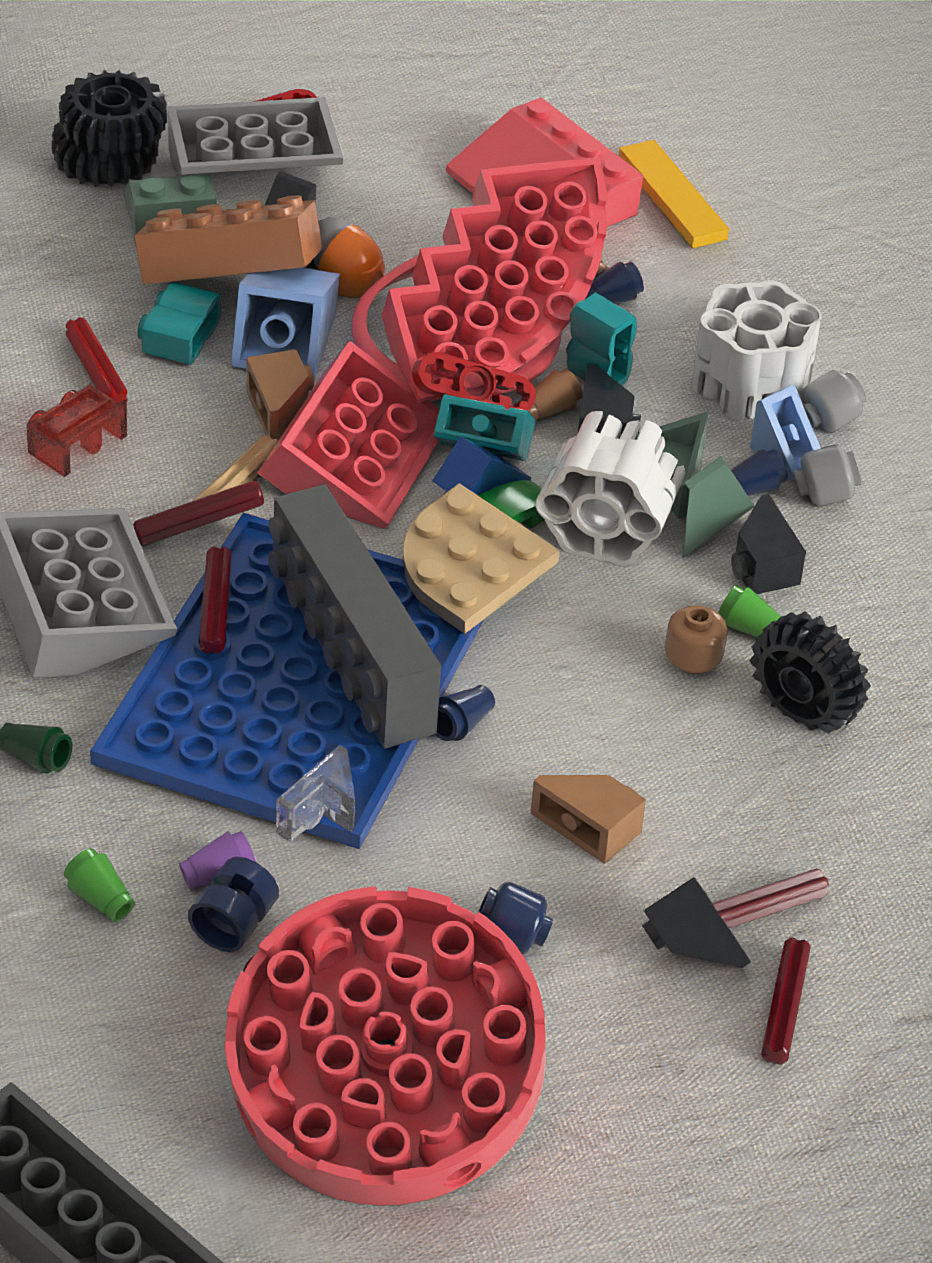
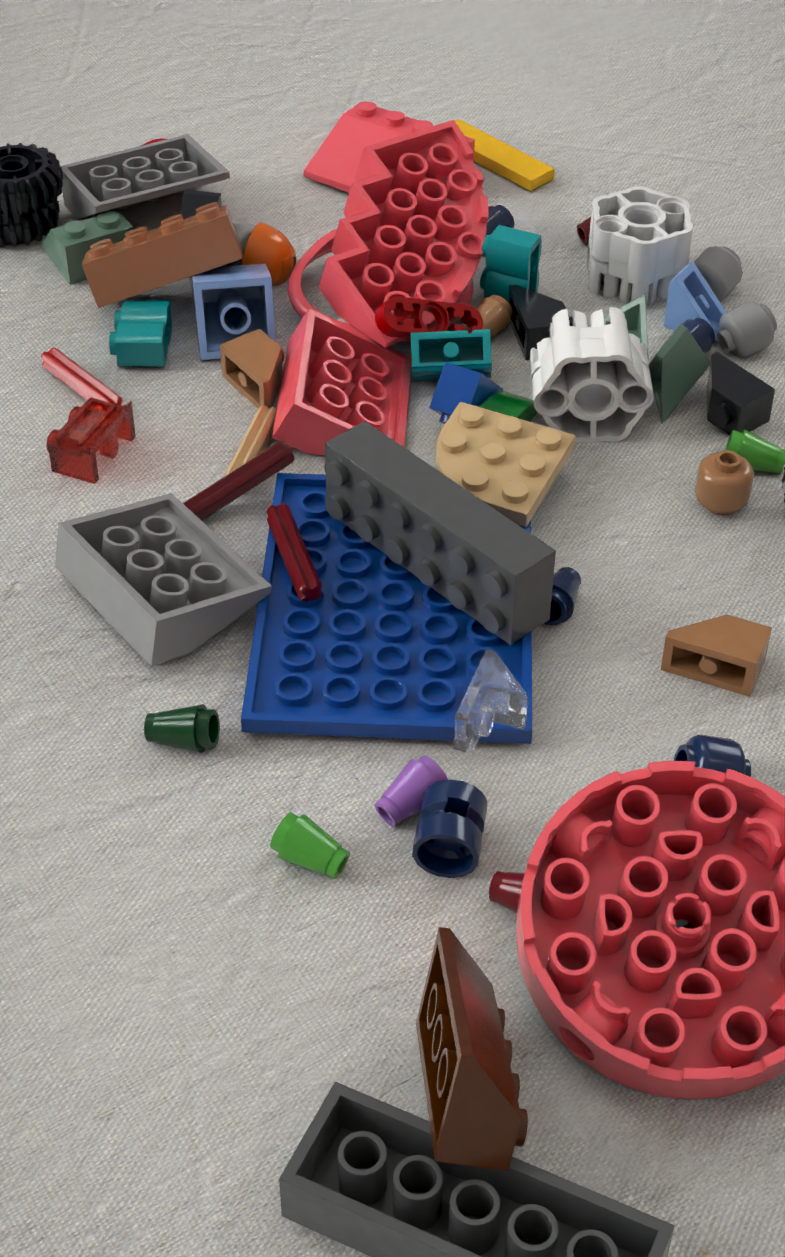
camera: 15 degrees left, 0 degrees up
(131, 1092) = (467, 1063): none -> reddish brown slope

